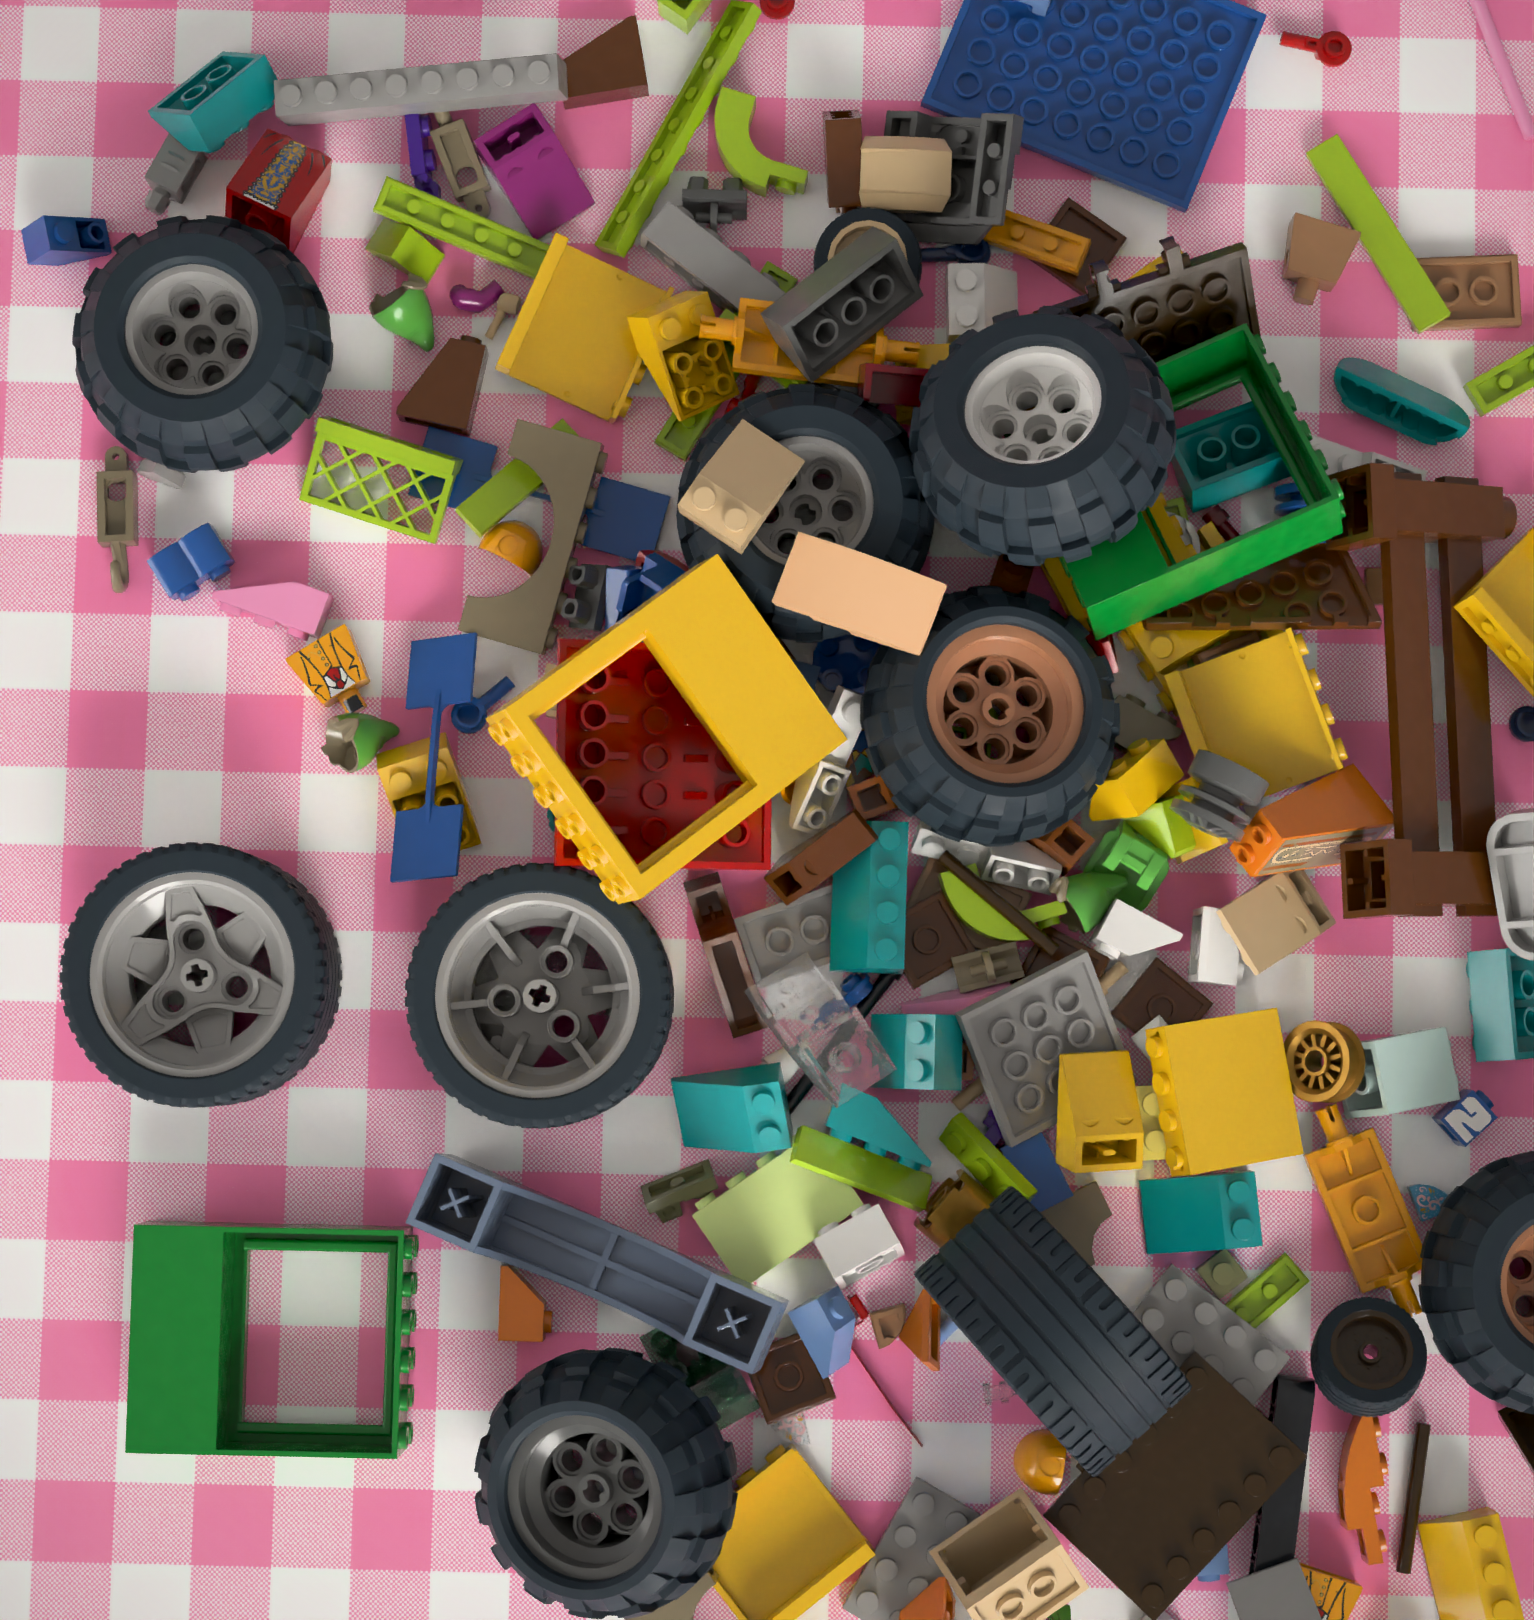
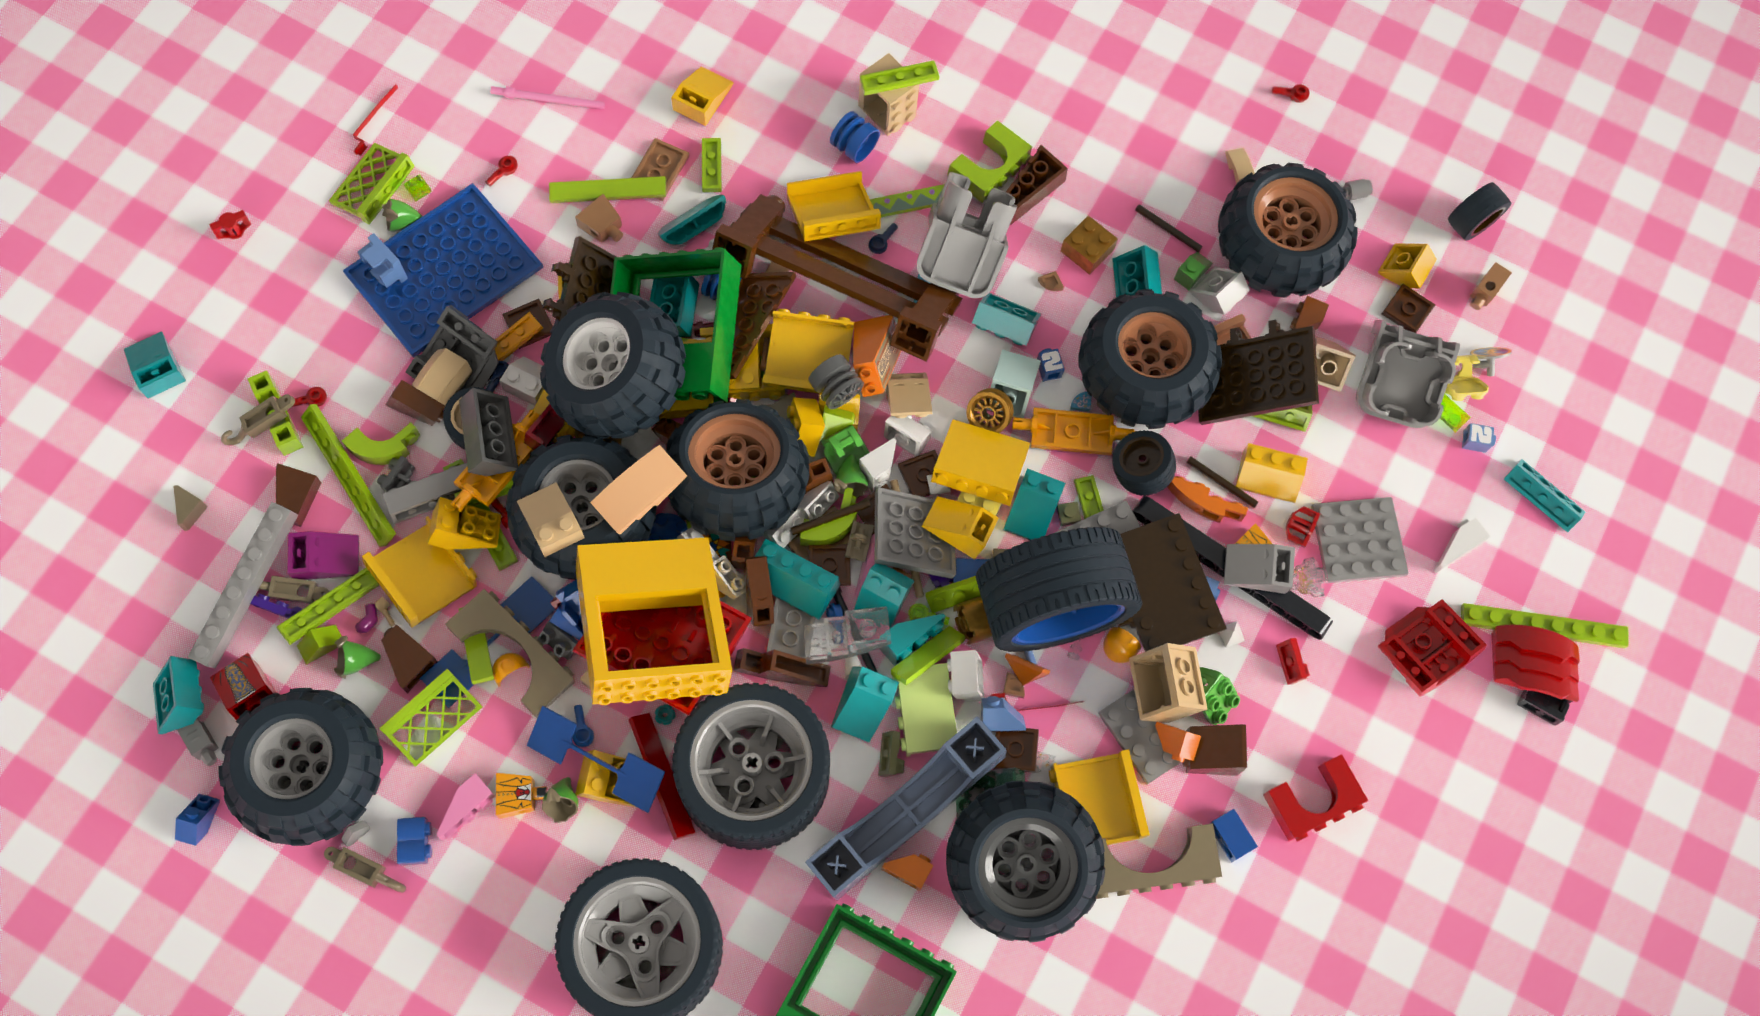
camera: 70 degrees left, 15 degrees down
(477, 857) = (668, 796): none -> red tile
(927, 1119) = (919, 611): none -> clear neon green plate

